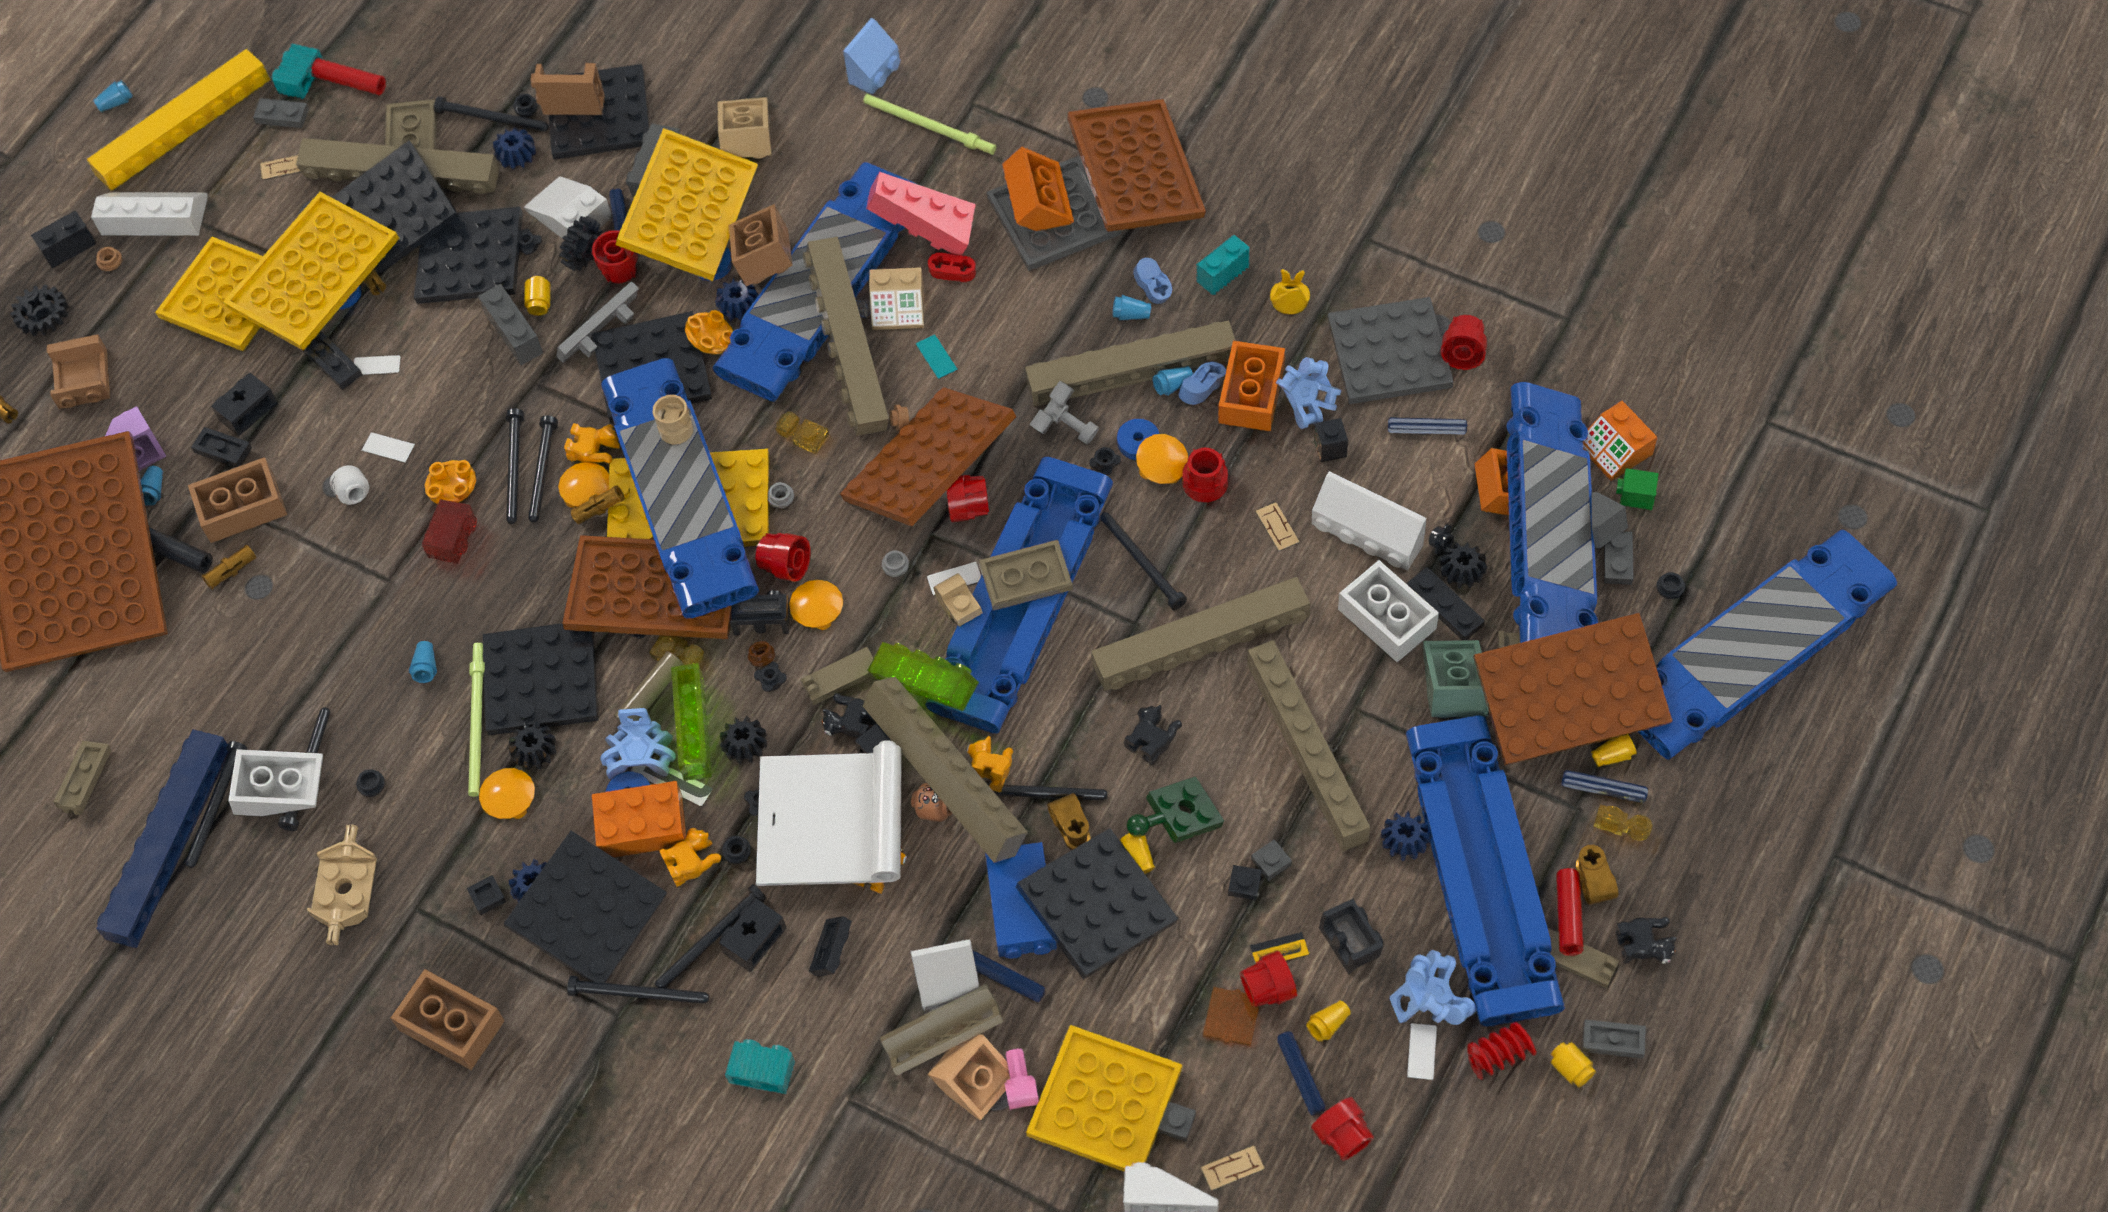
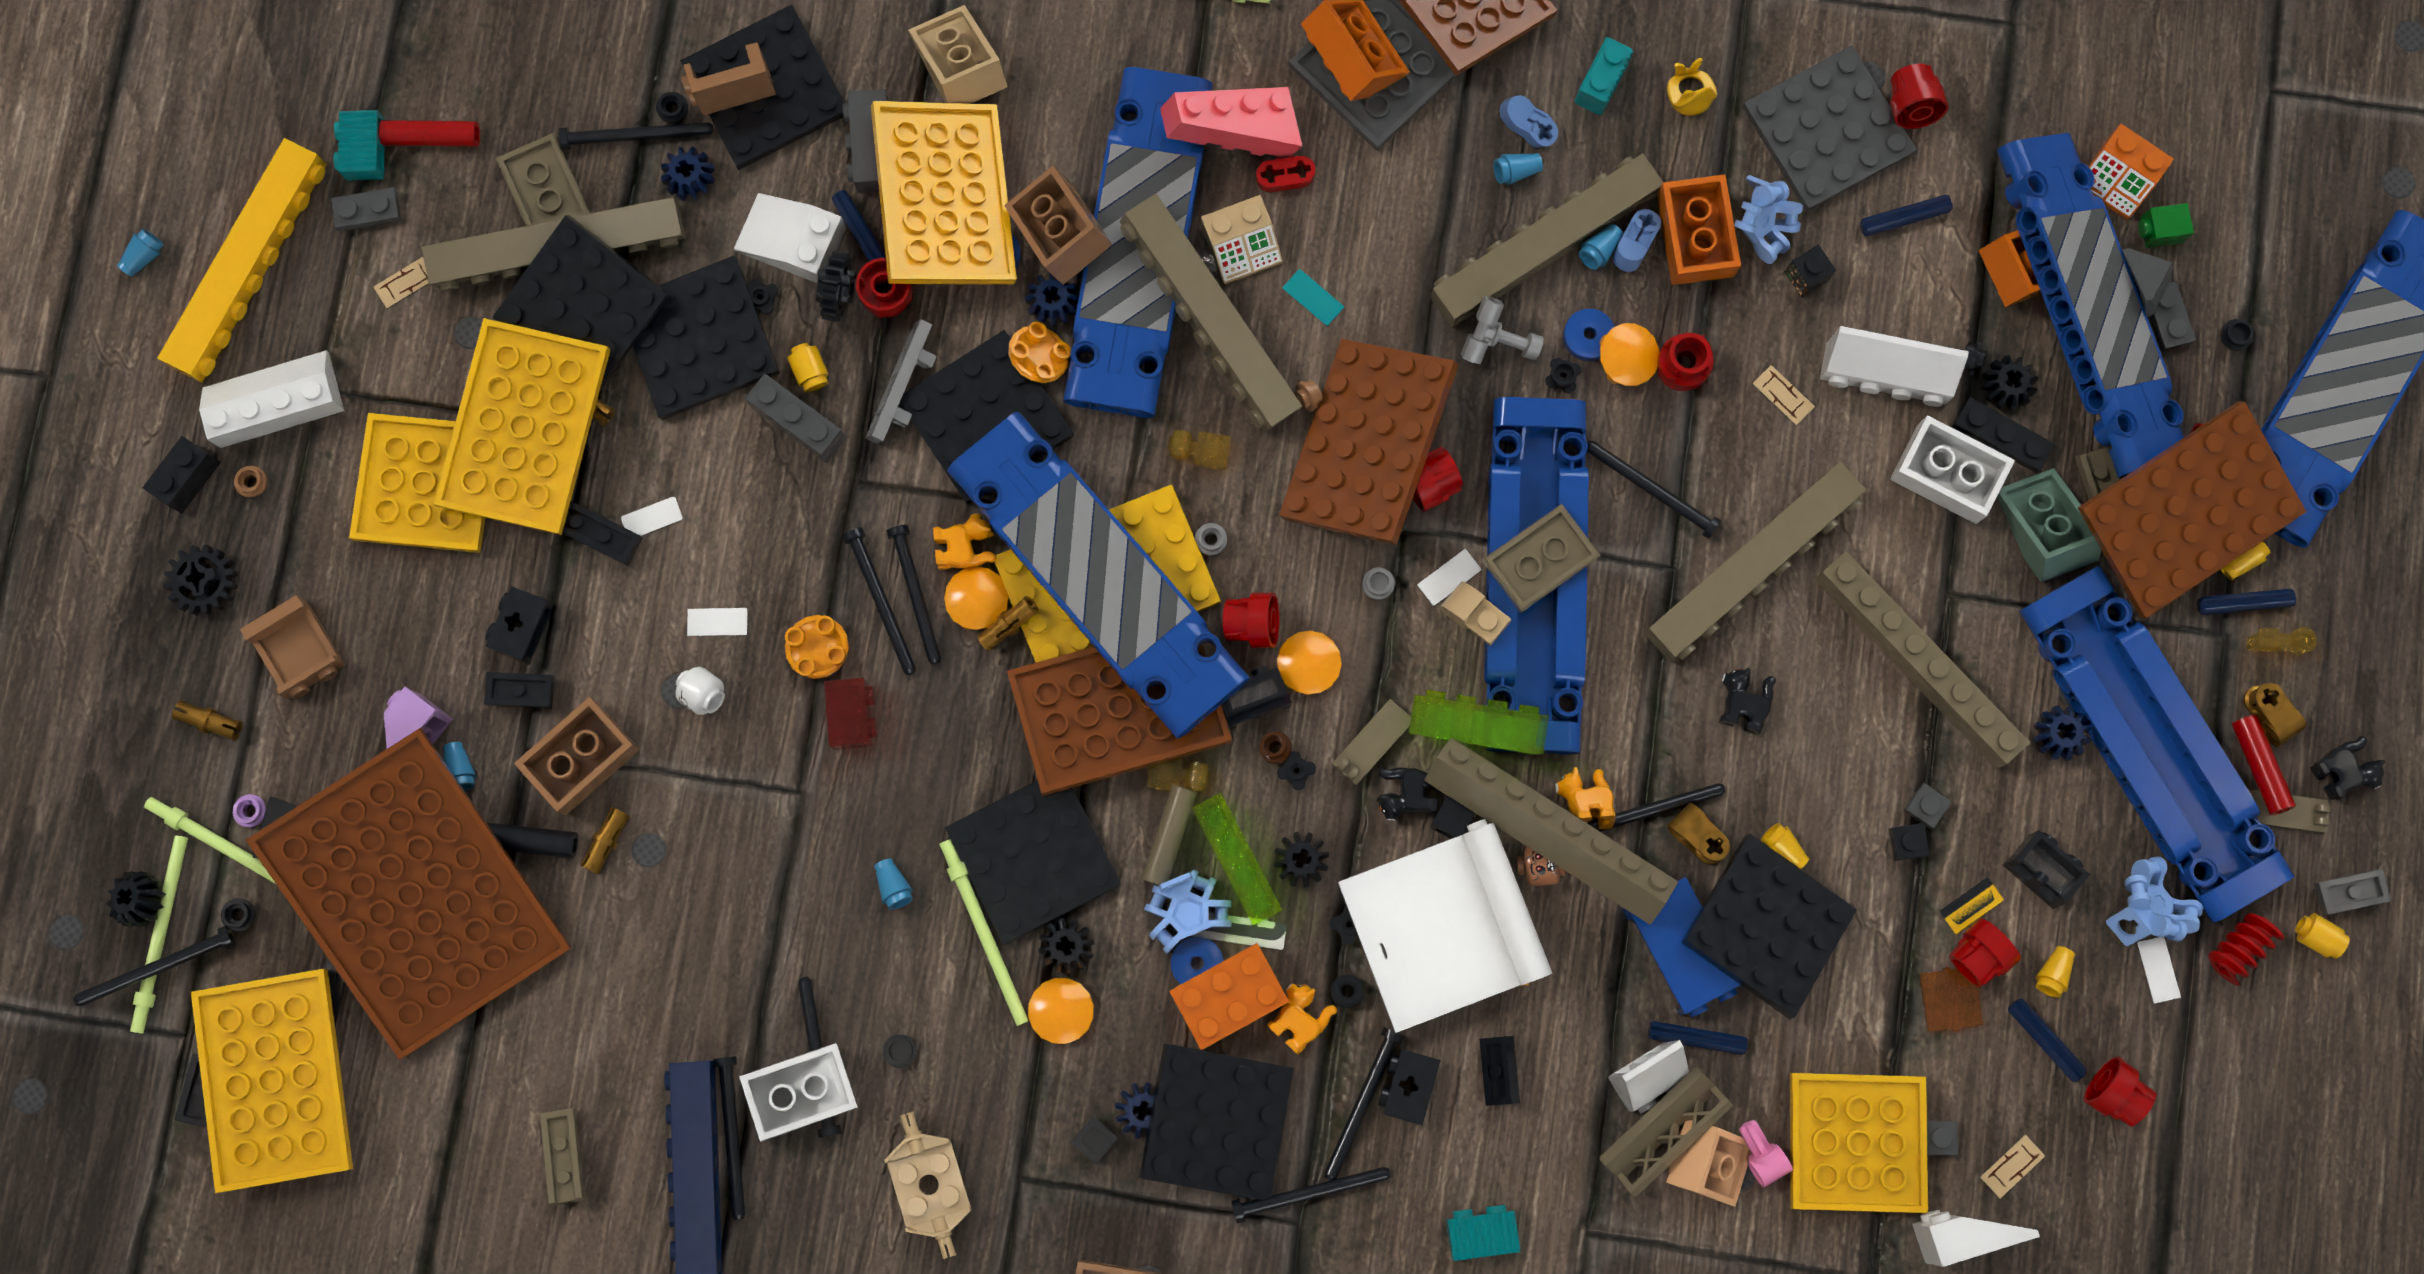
camera: 25 degrees left, 20 degrees up
(673, 419) = (1067, 501): tan wheel -> none
(1177, 823) = (1816, 801): dark green plate -> none

